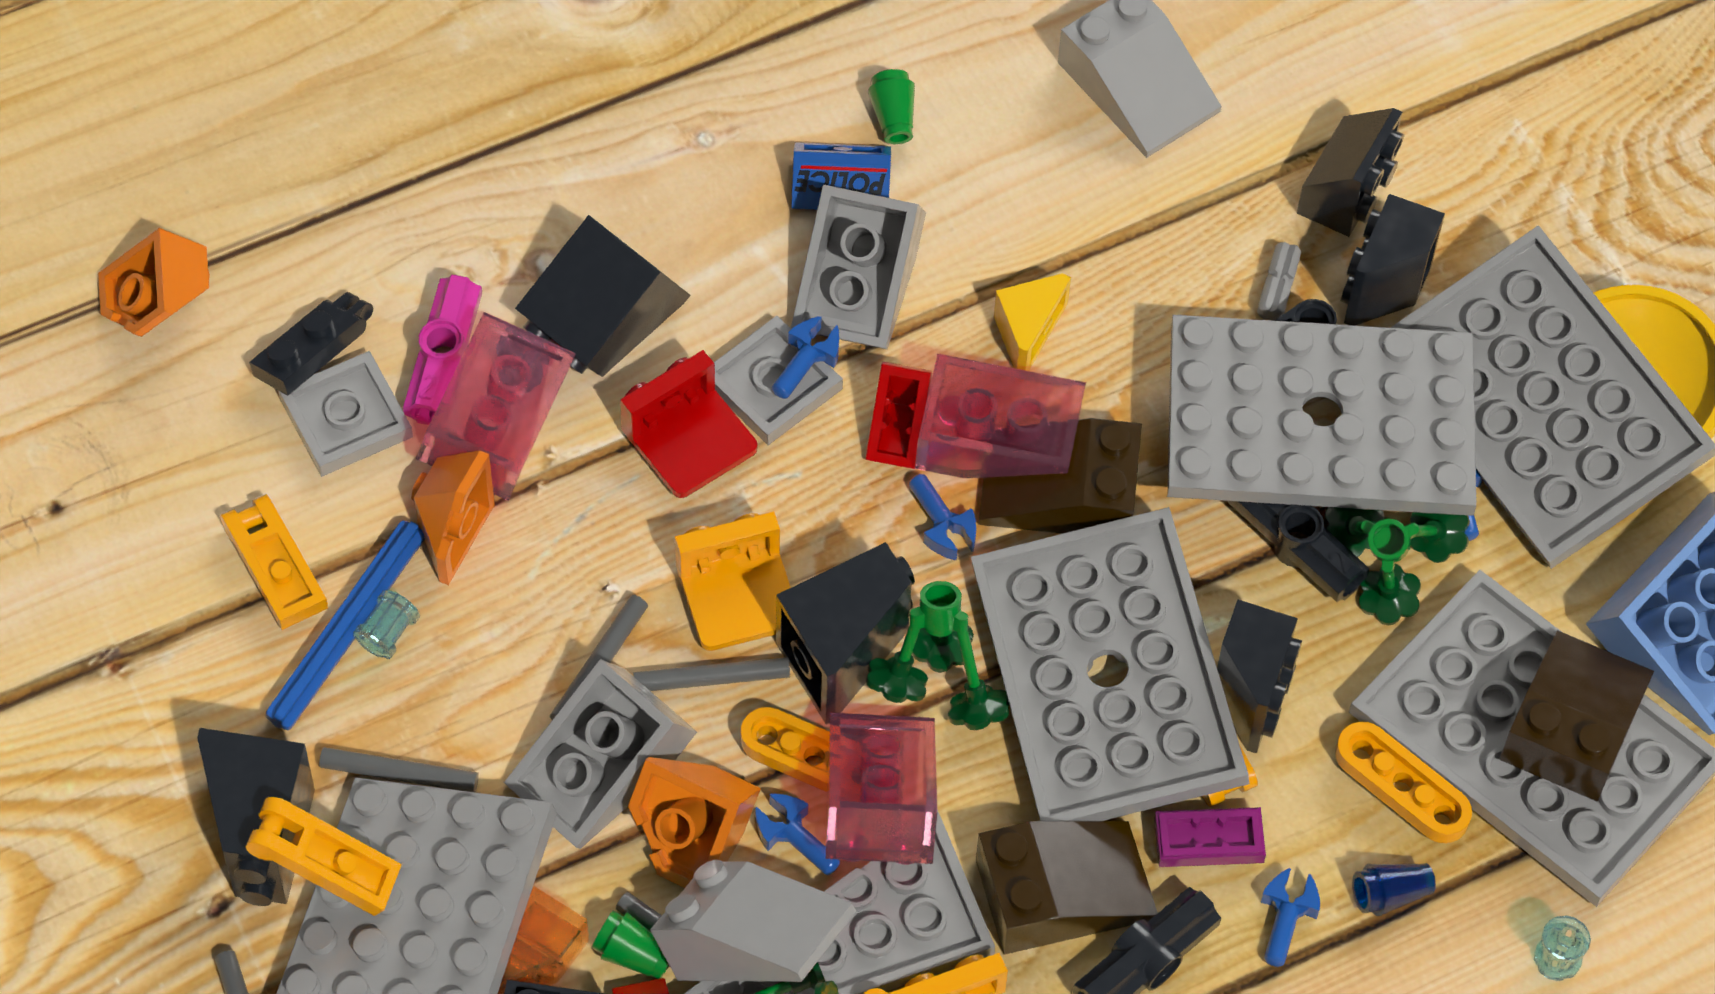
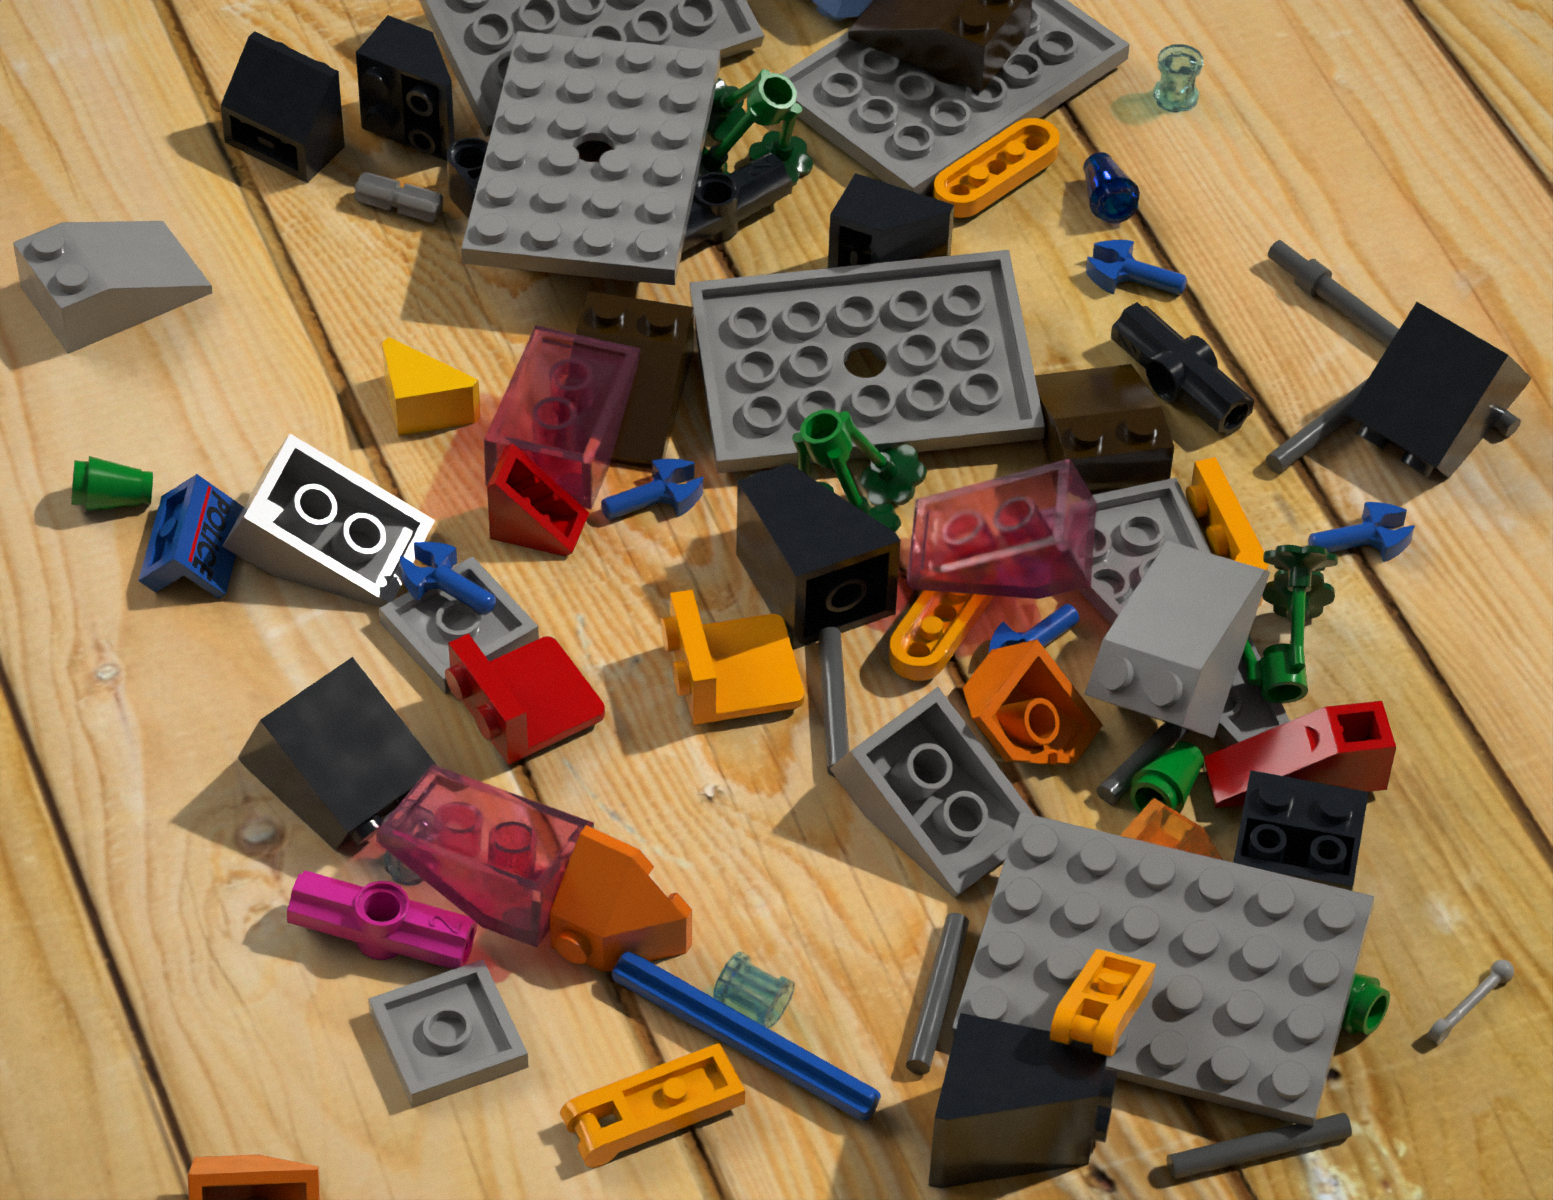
camera: 85 degrees left, 10 degrees down
(312, 343) = (350, 1058): black hinge -> none
(608, 645) = (809, 800): dark grey bar -> none
(1209, 837) = (1051, 312): magenta plate -> none

